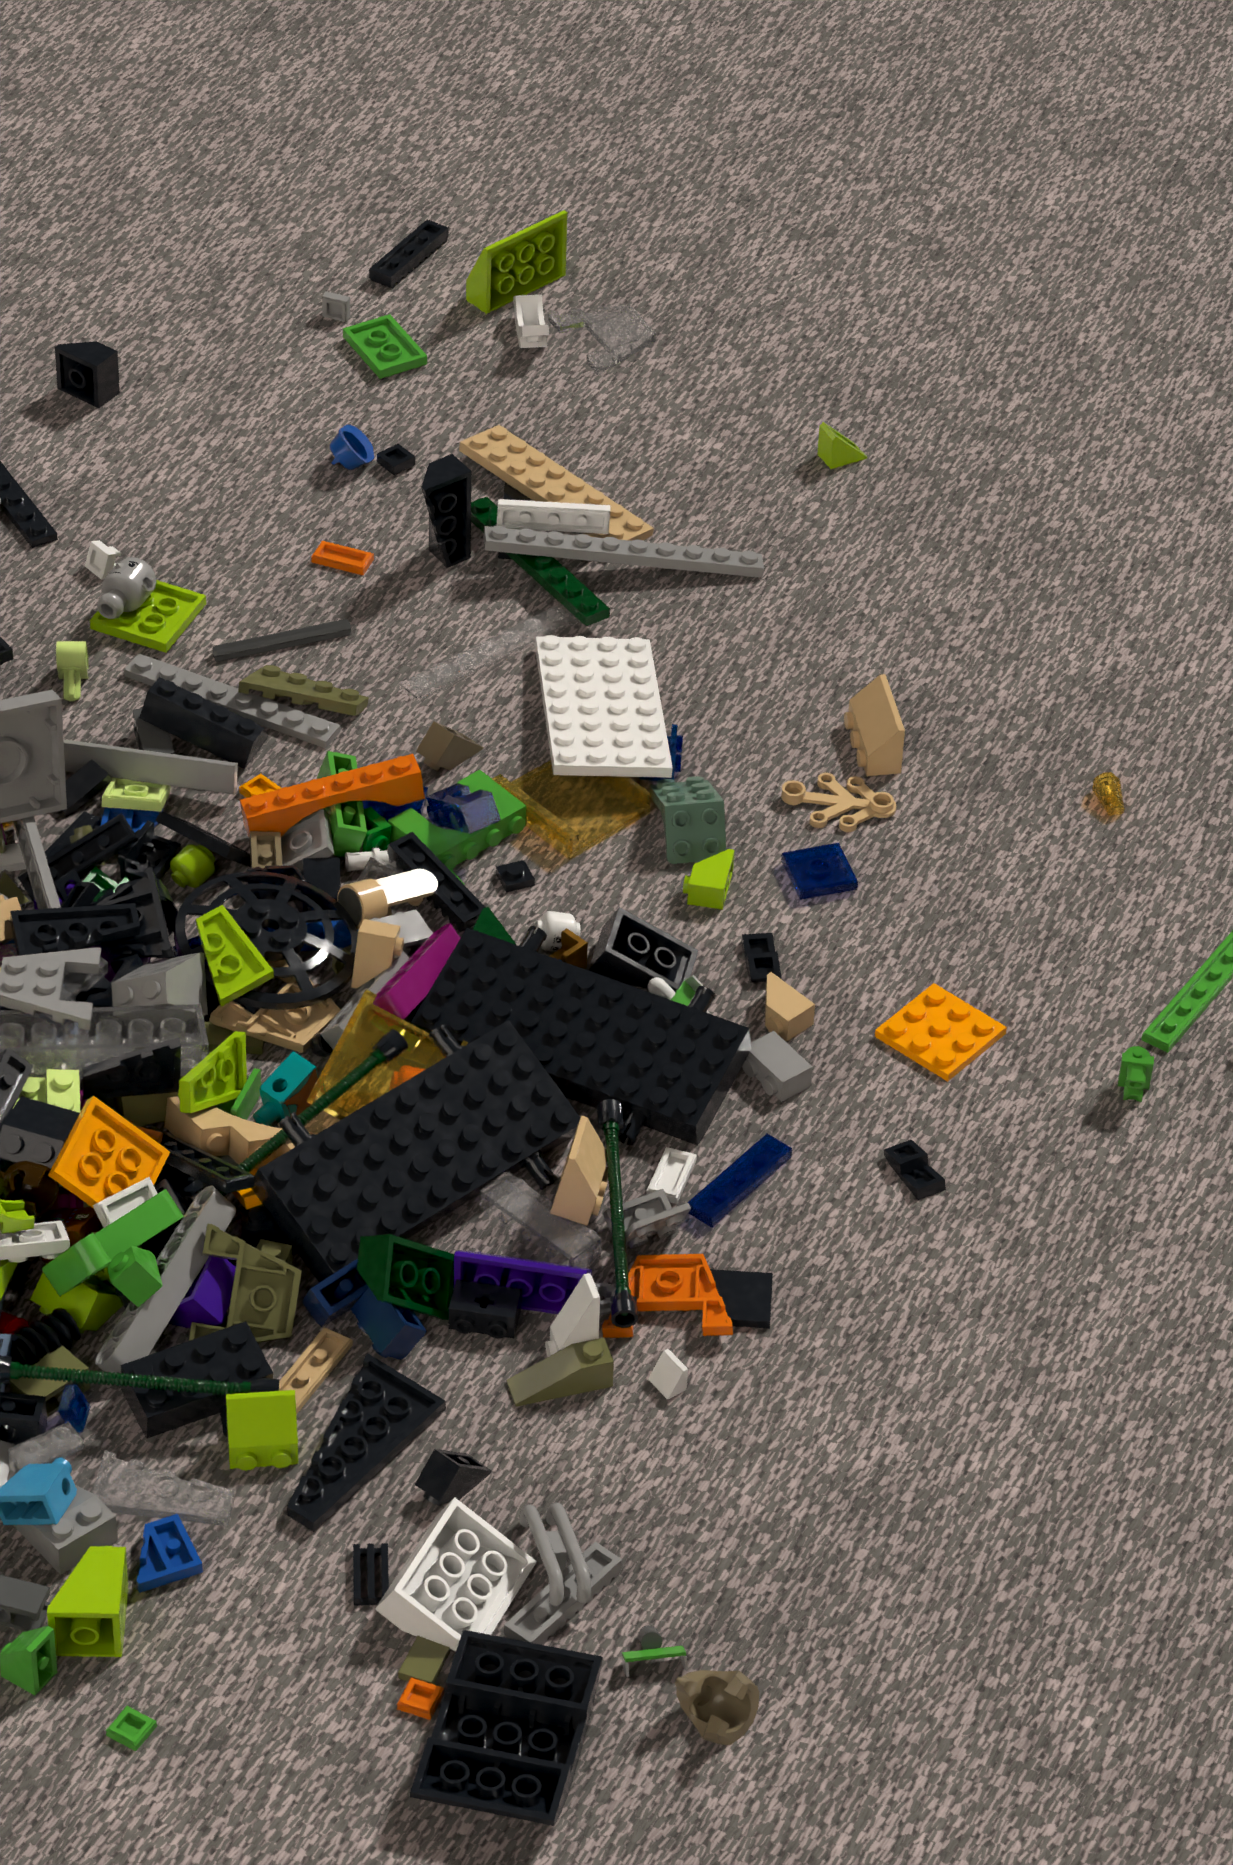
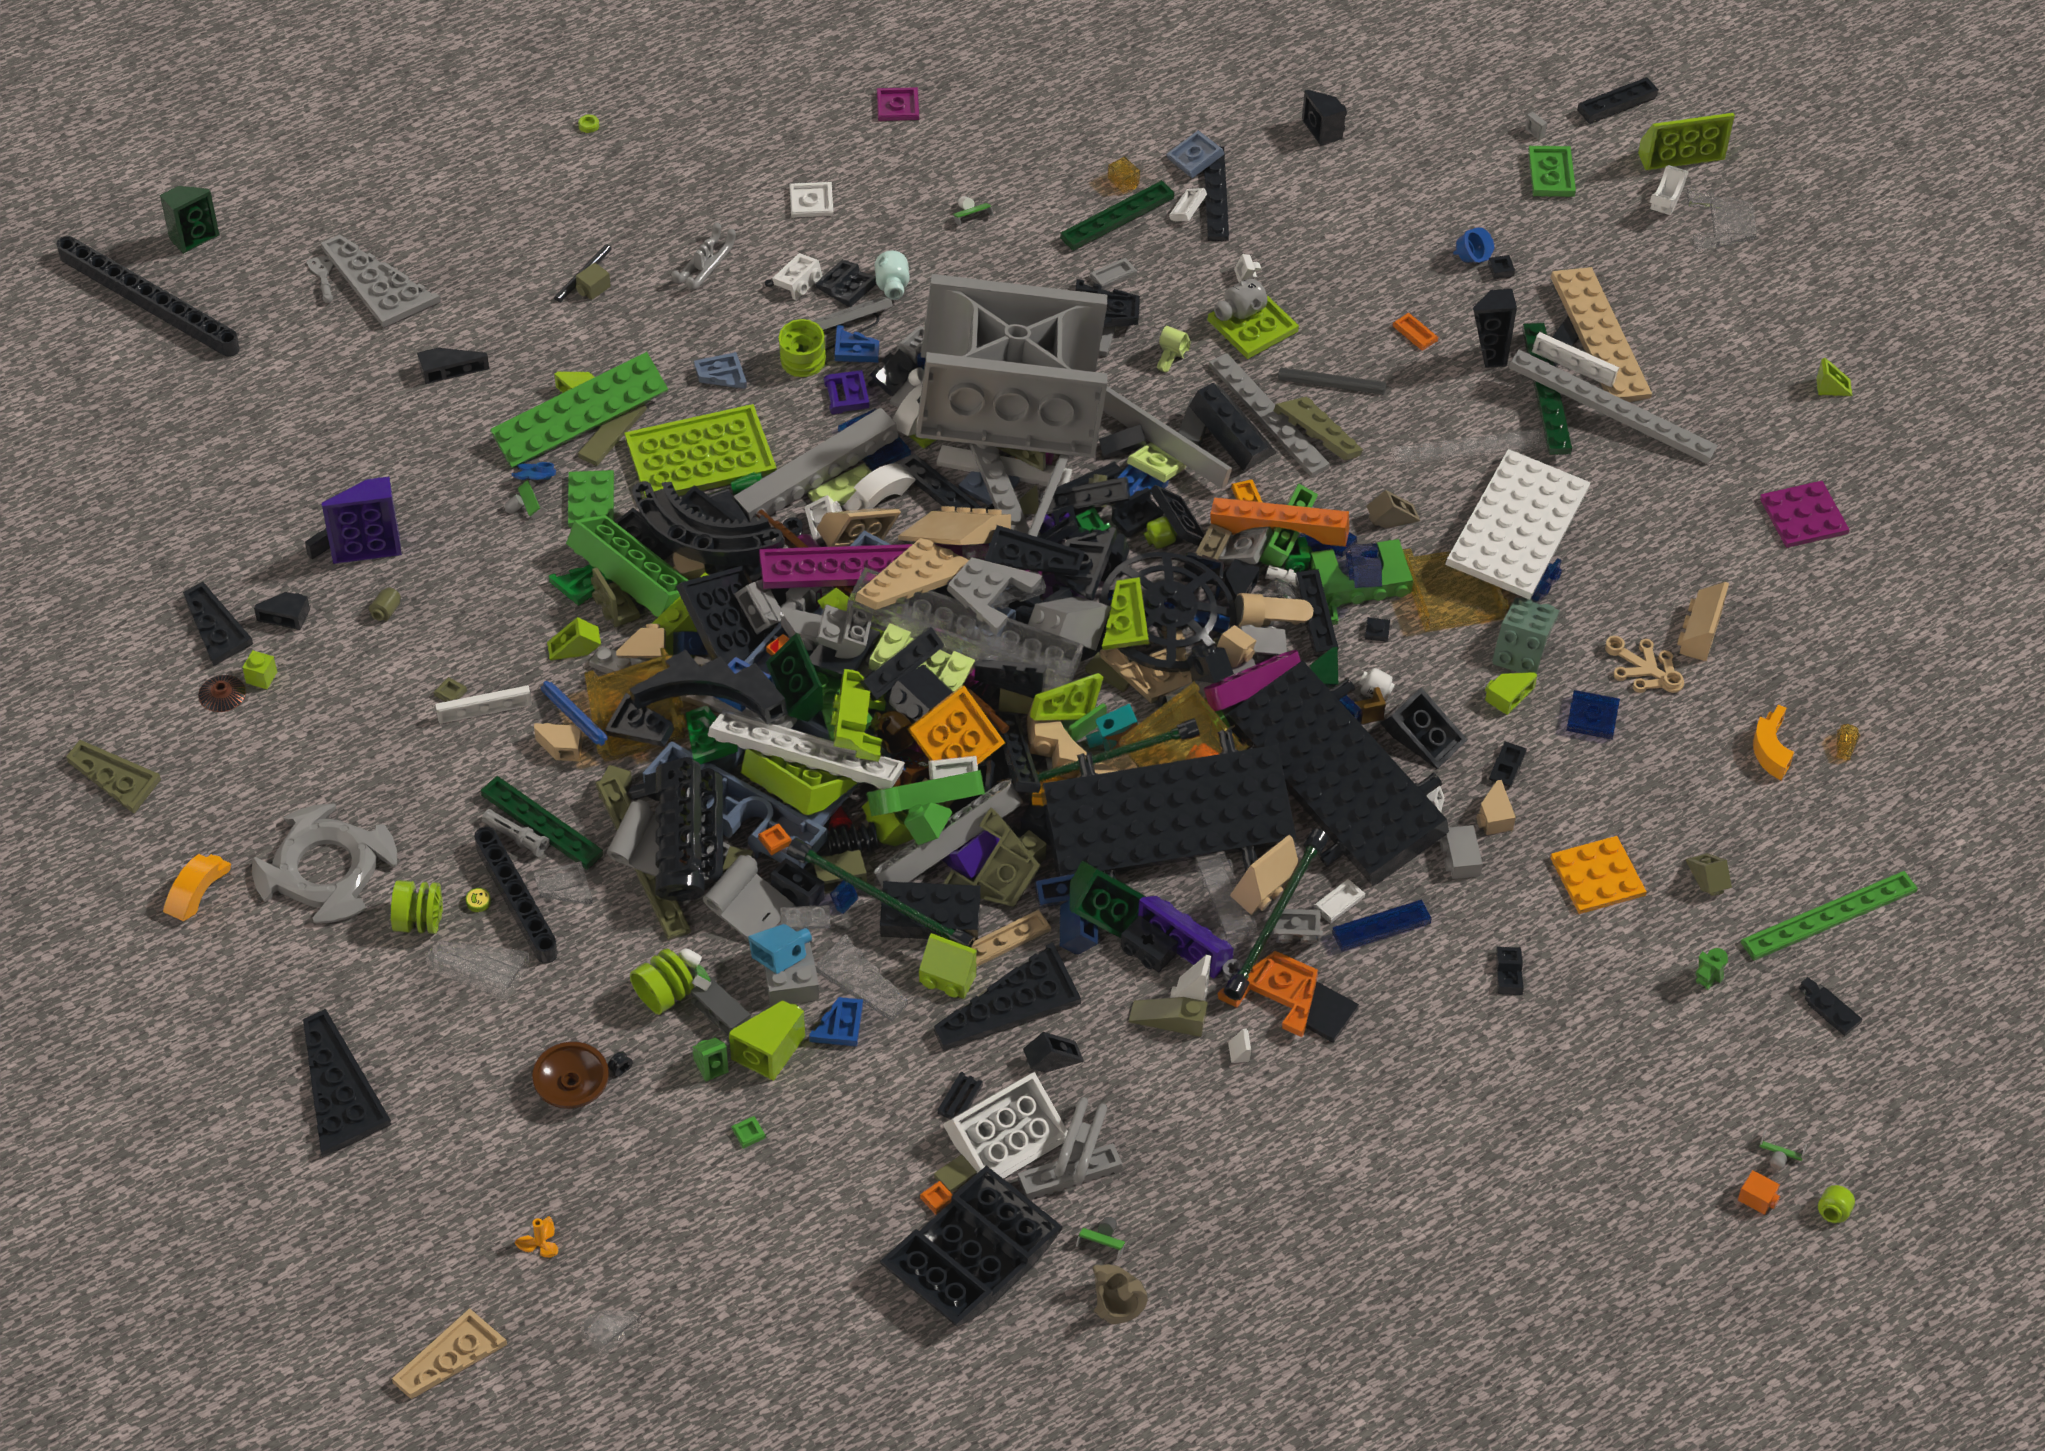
camera: 30 degrees right, 10 degrees up
(359, 970) = (1208, 663): none -> black brick
(683, 994) = (1422, 763): piece -> none
(901, 589) = (1804, 514): none -> magenta plate
(1032, 831) = (1767, 748): none -> light orange arch
(1063, 979) = (1710, 873): none -> olive slope

